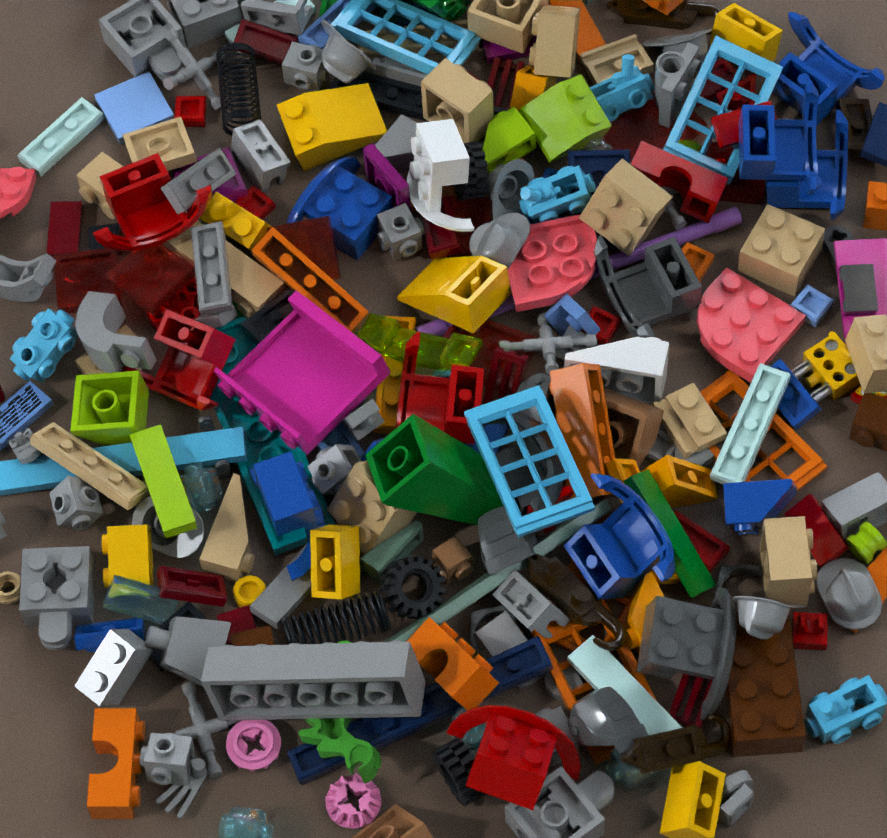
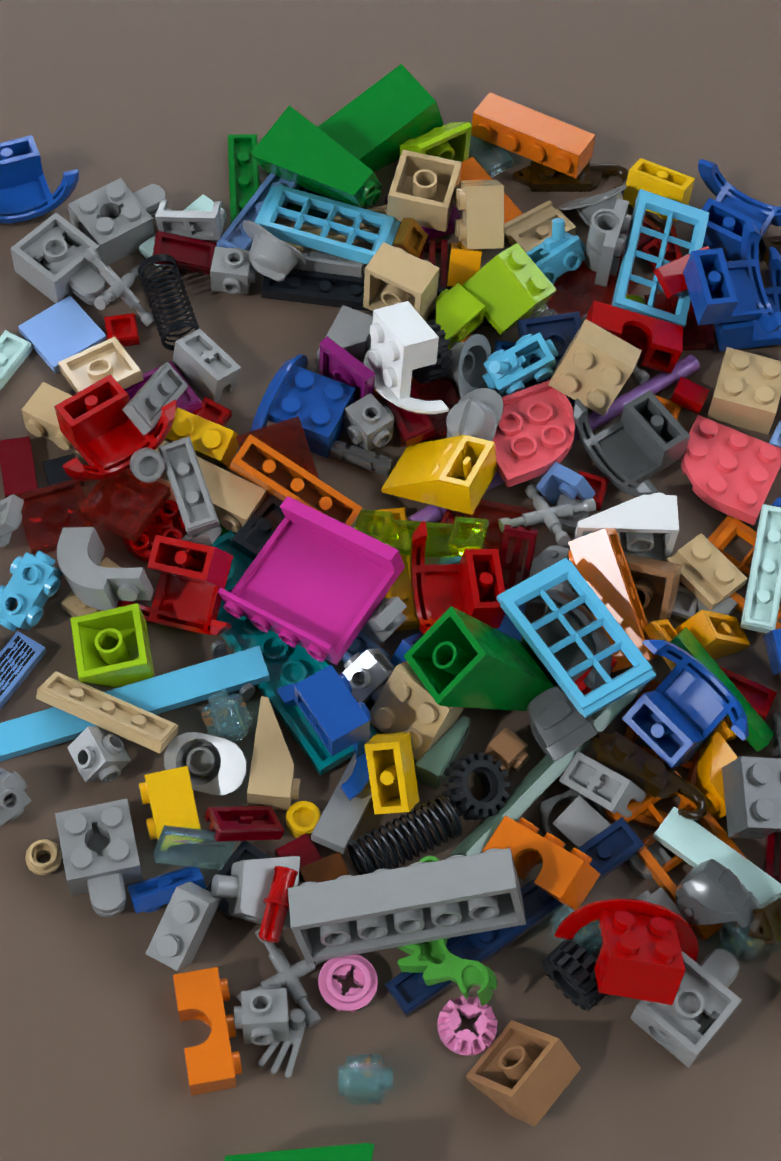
camera: 20 degrees left, 0 degrees up
(22, 447) = (26, 702): light grey piece -> none
(163, 481) = (192, 717): lime tile -> none
(176, 243) = (147, 464): none -> light grey tile
(194, 668) = (277, 904): none -> red axle
(331, 123) = (272, 323): yellow slope -> none
(386, 264) = (361, 457): none -> dark grey axle
(484, 57) = (410, 237): none -> pearl gold plate
(722, 246) = (689, 395): none -> red tile

